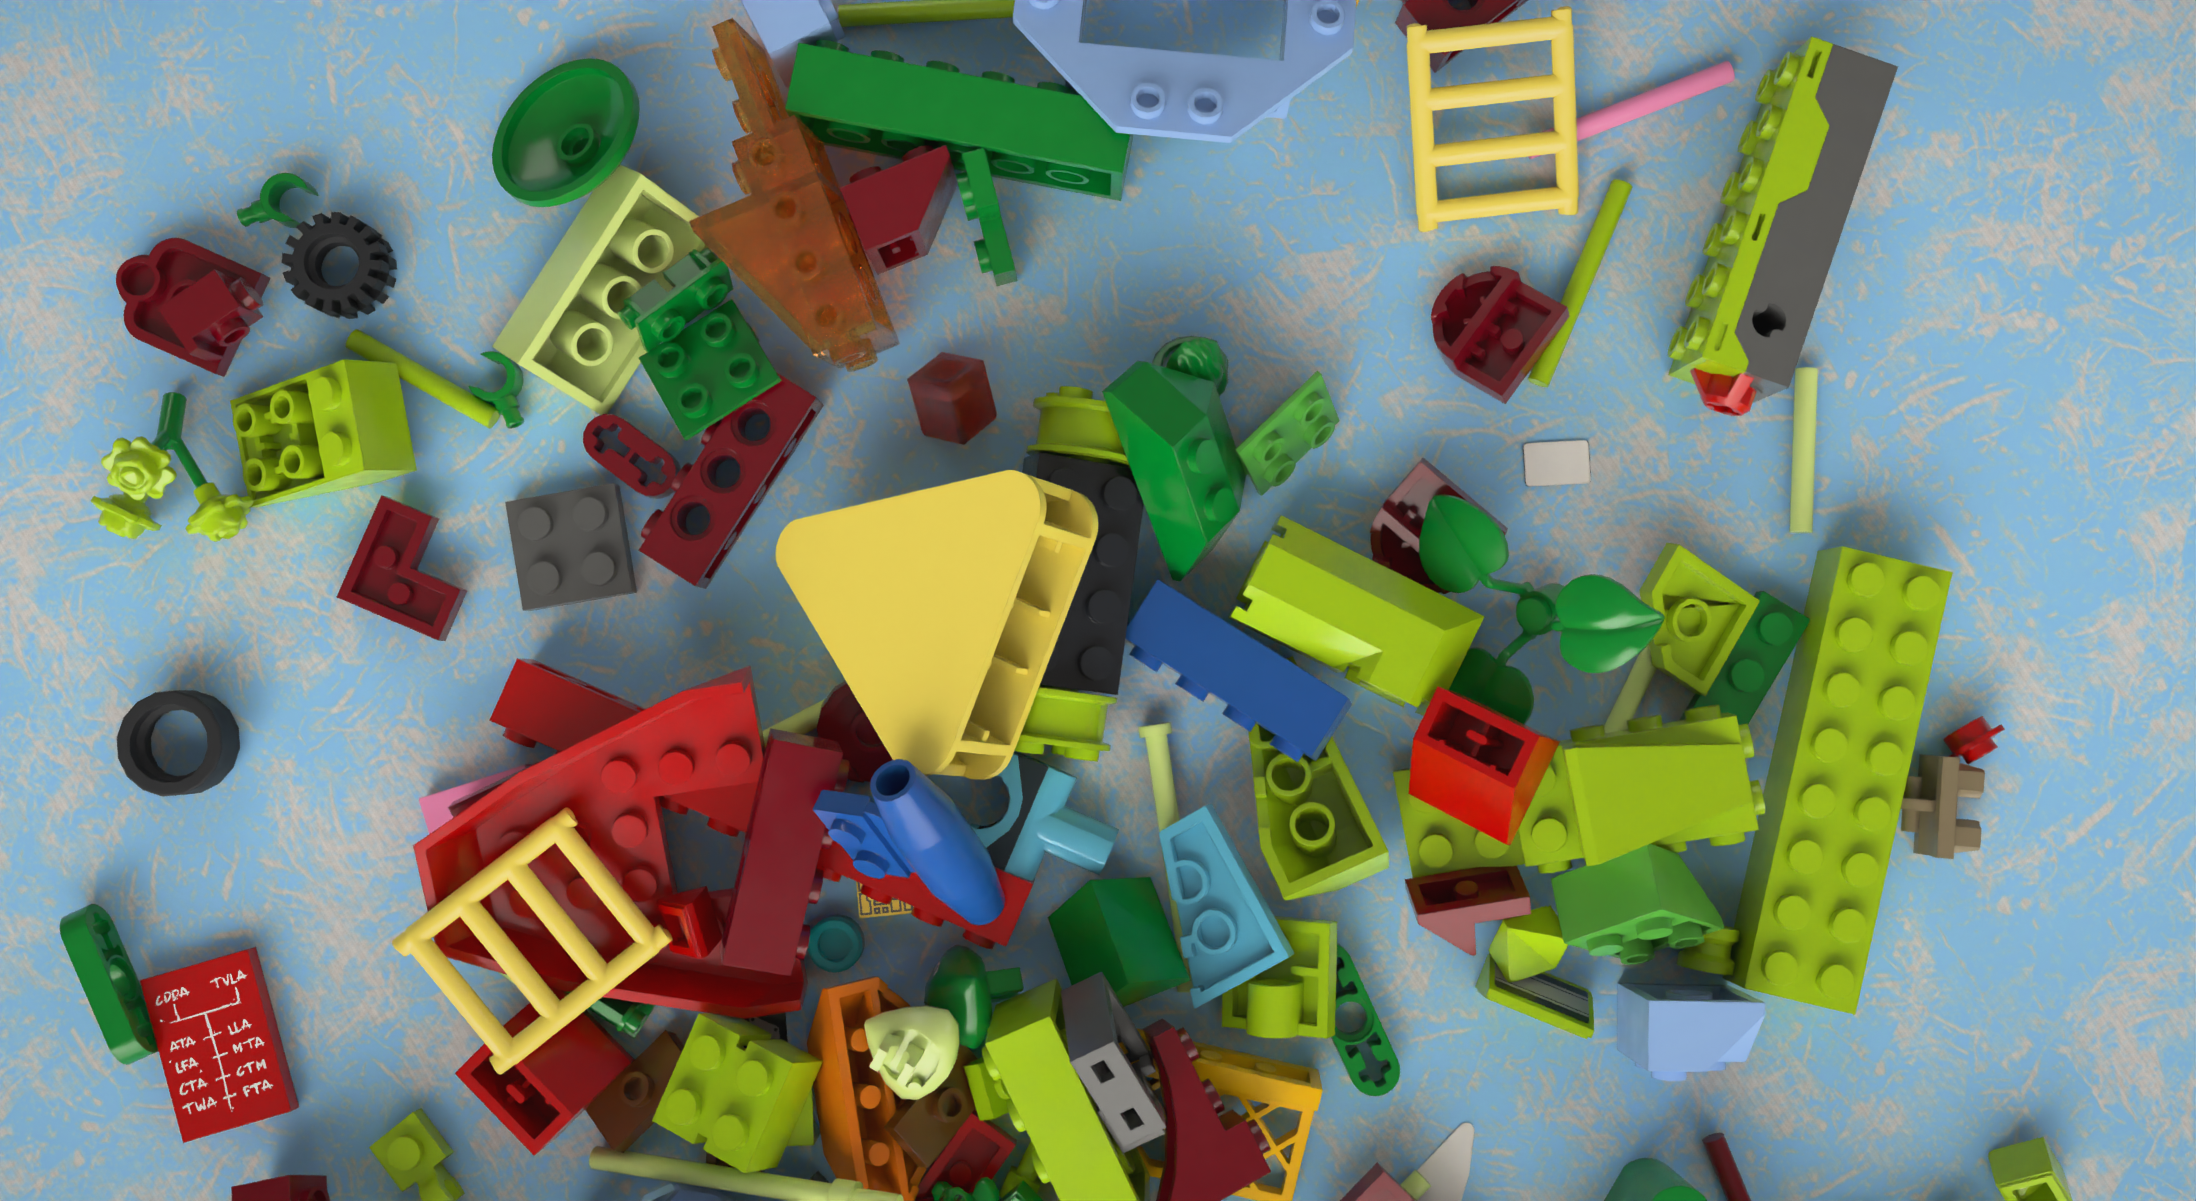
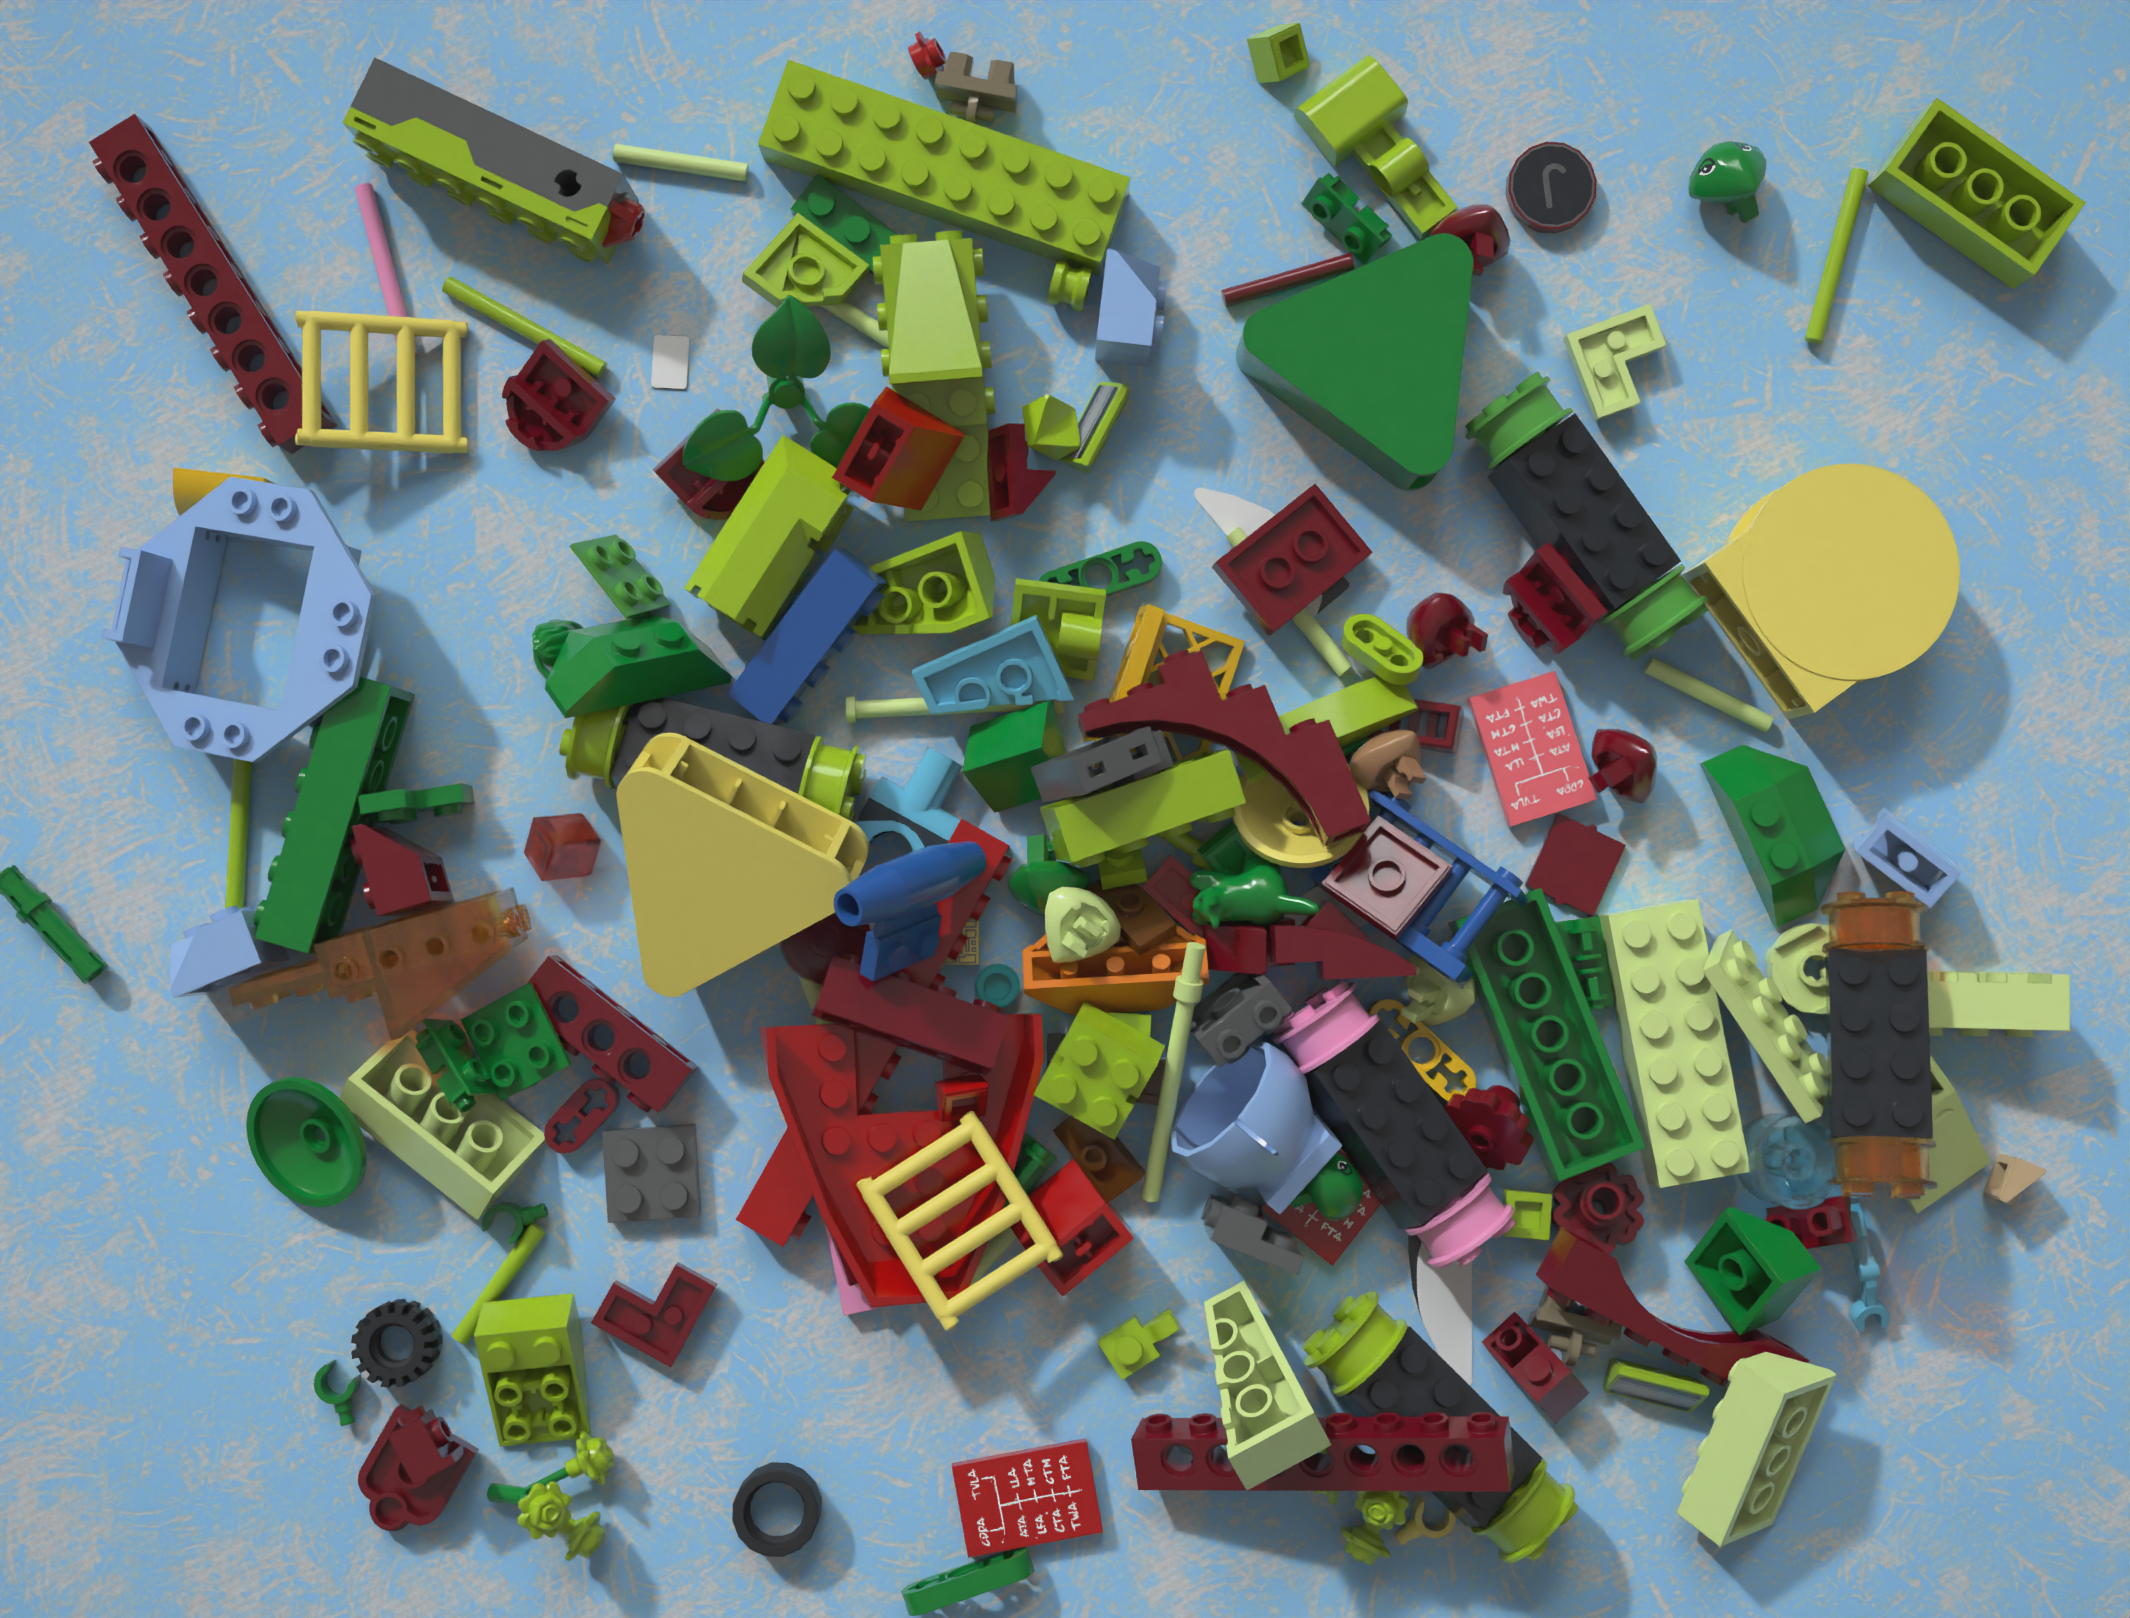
camera: 85 degrees left, 0 degrees up
(1634, 906) = (1026, 341): bright green slope -> none

